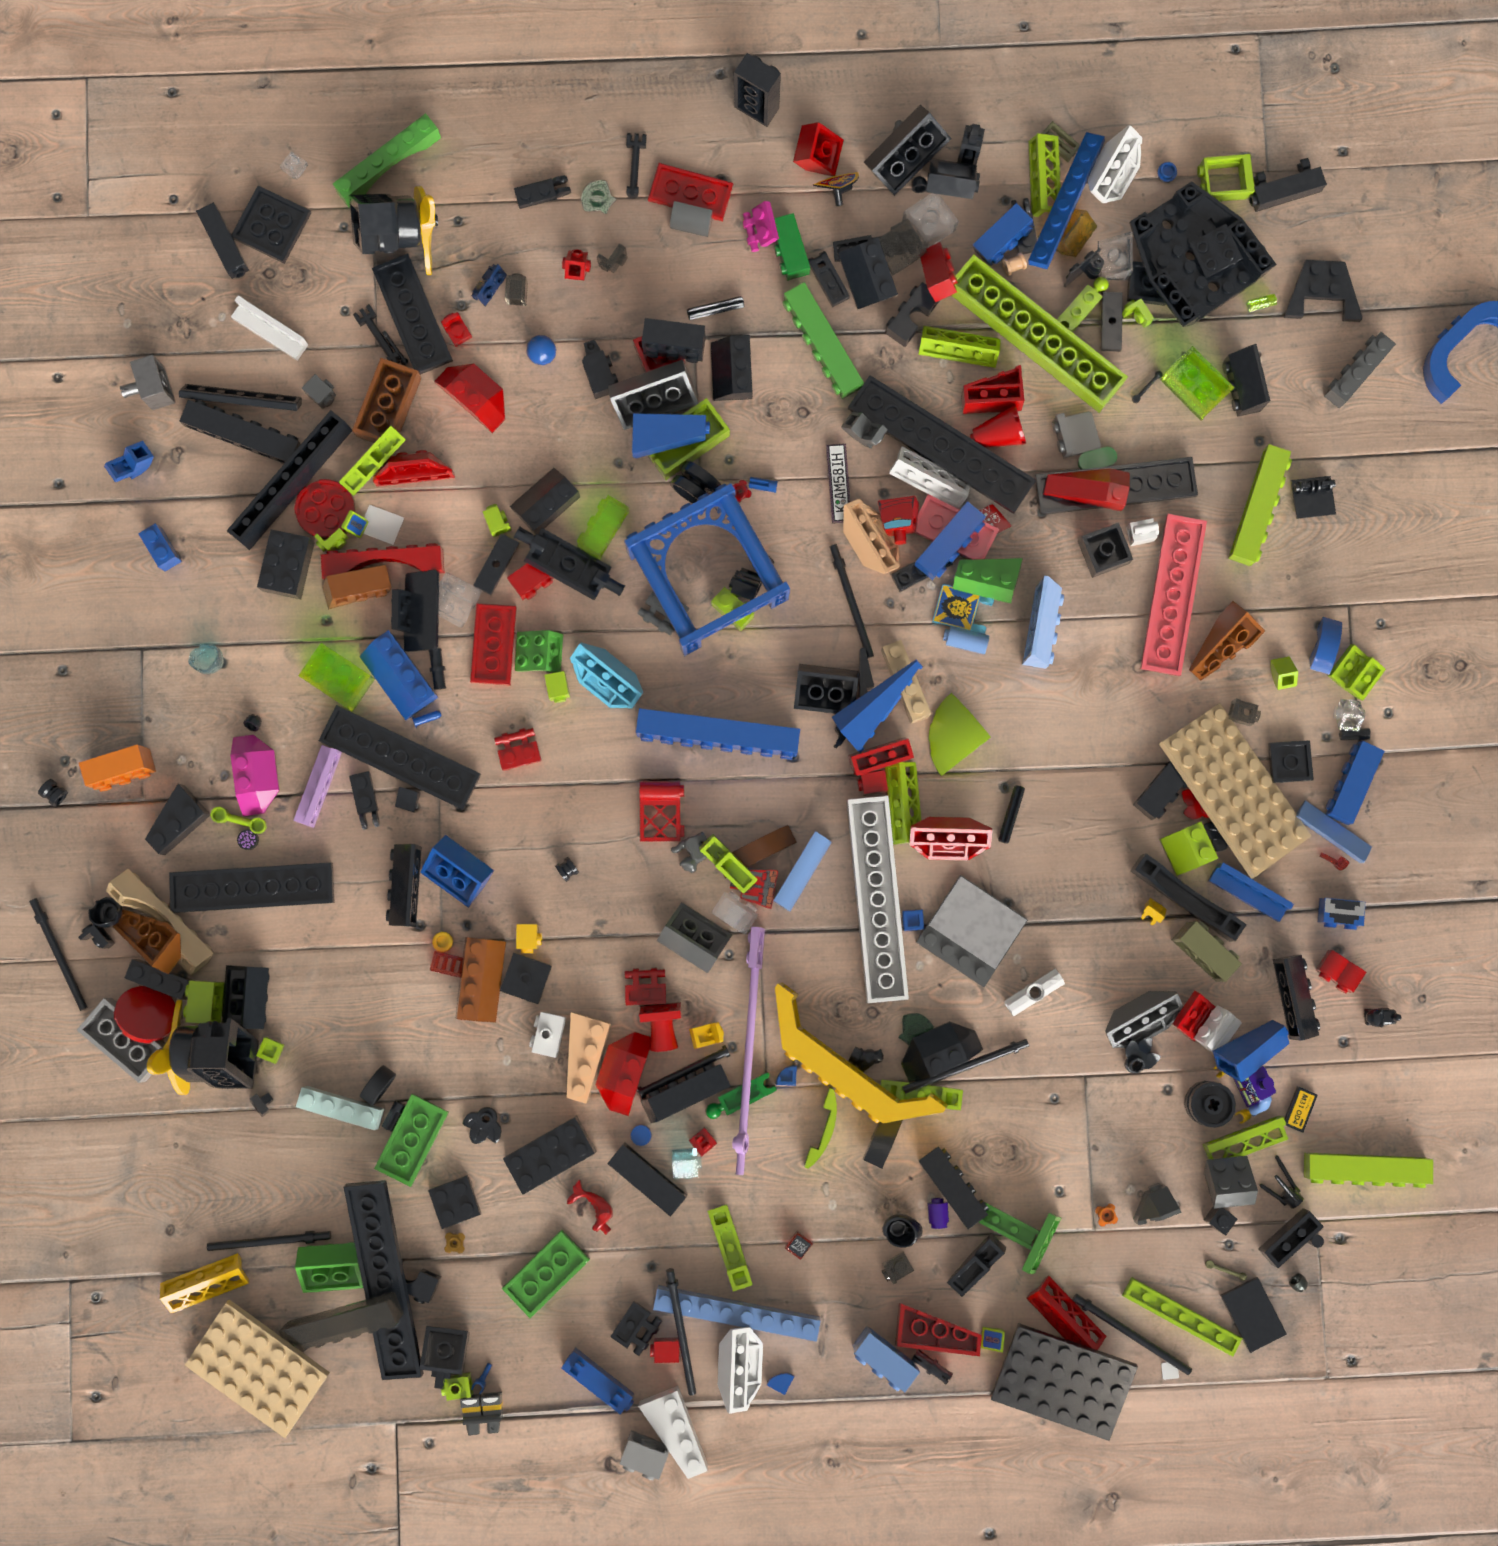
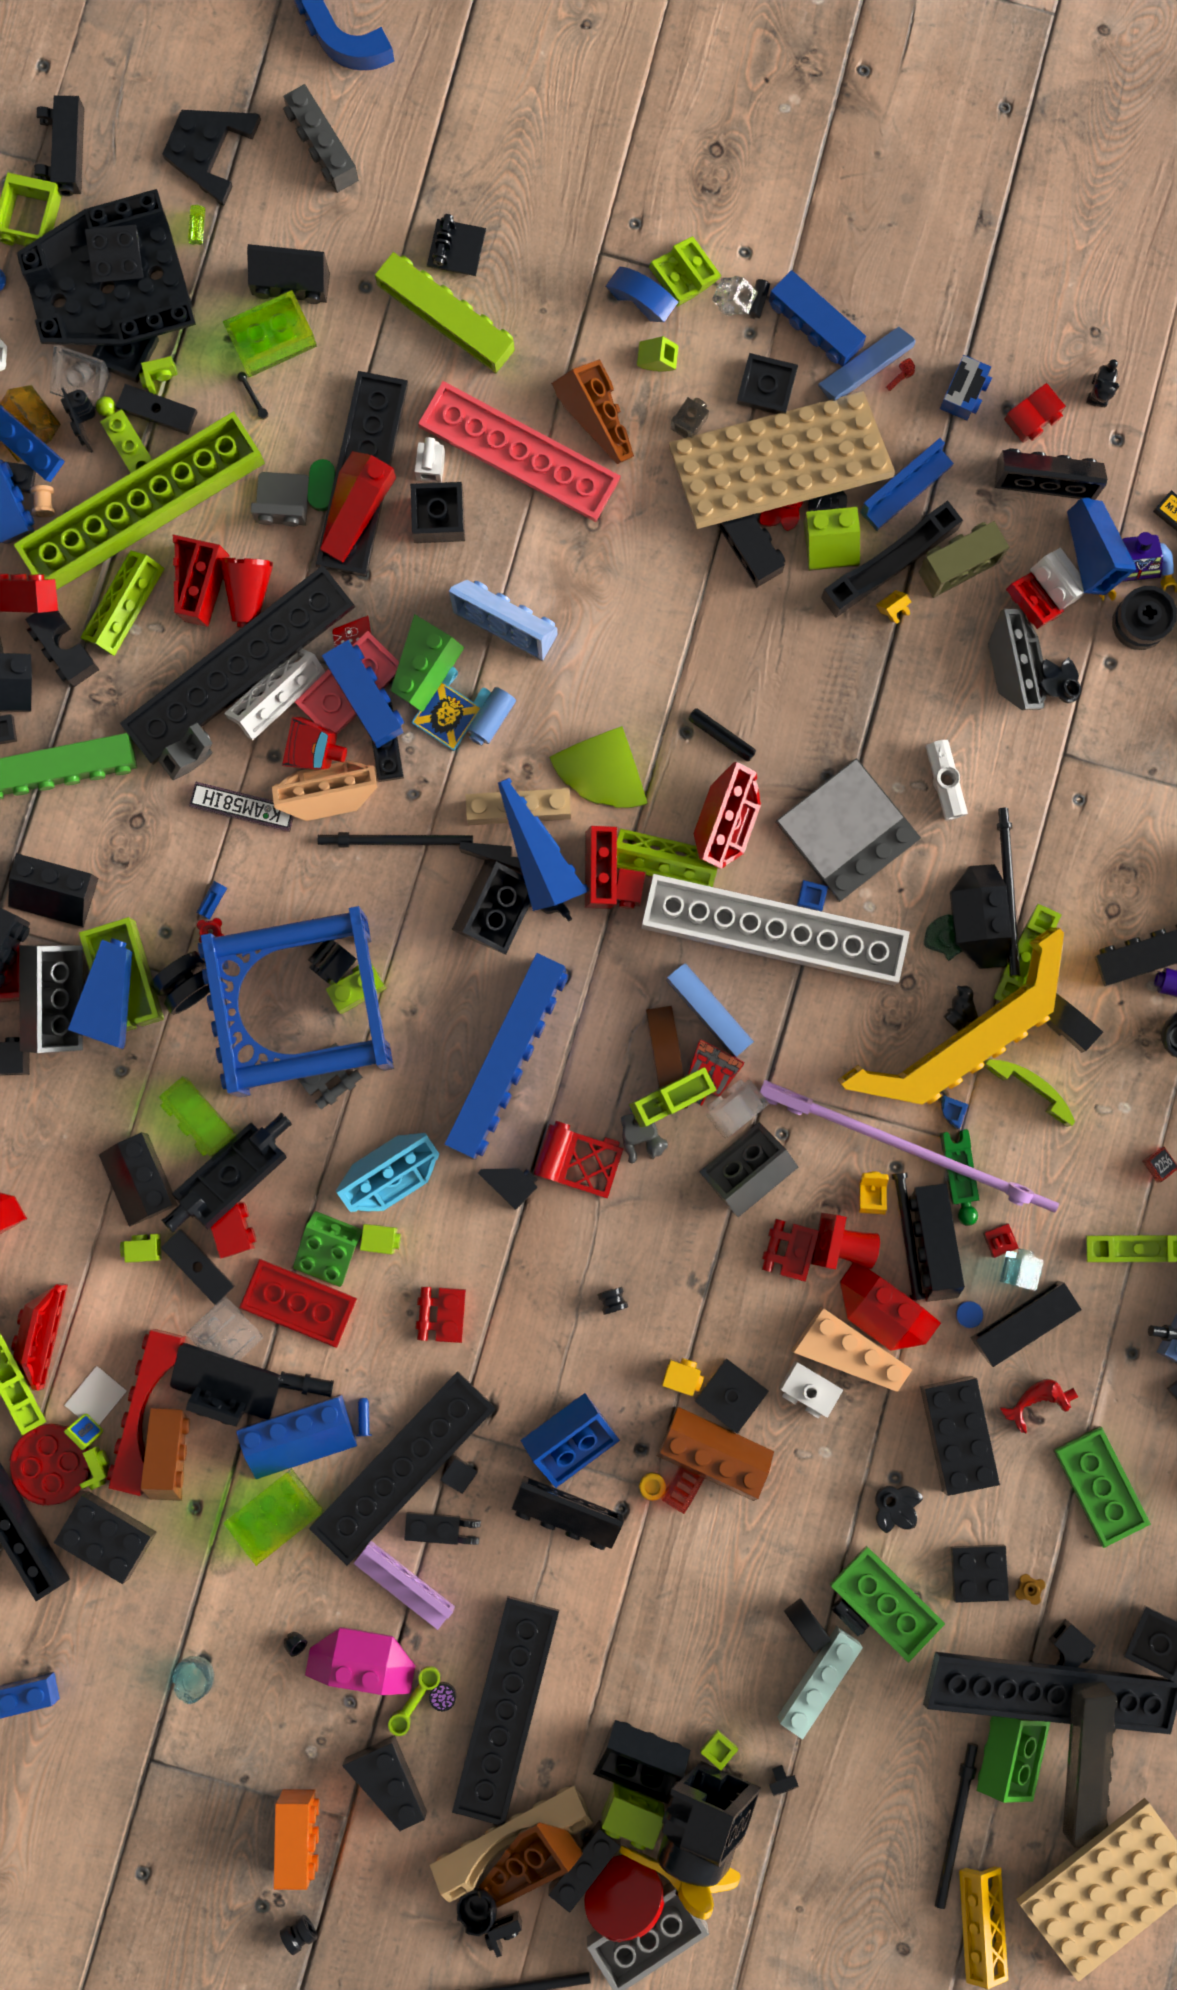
camera: 70 degrees left, 0 degrees up
(627, 767) = (511, 1184): none -> black slope

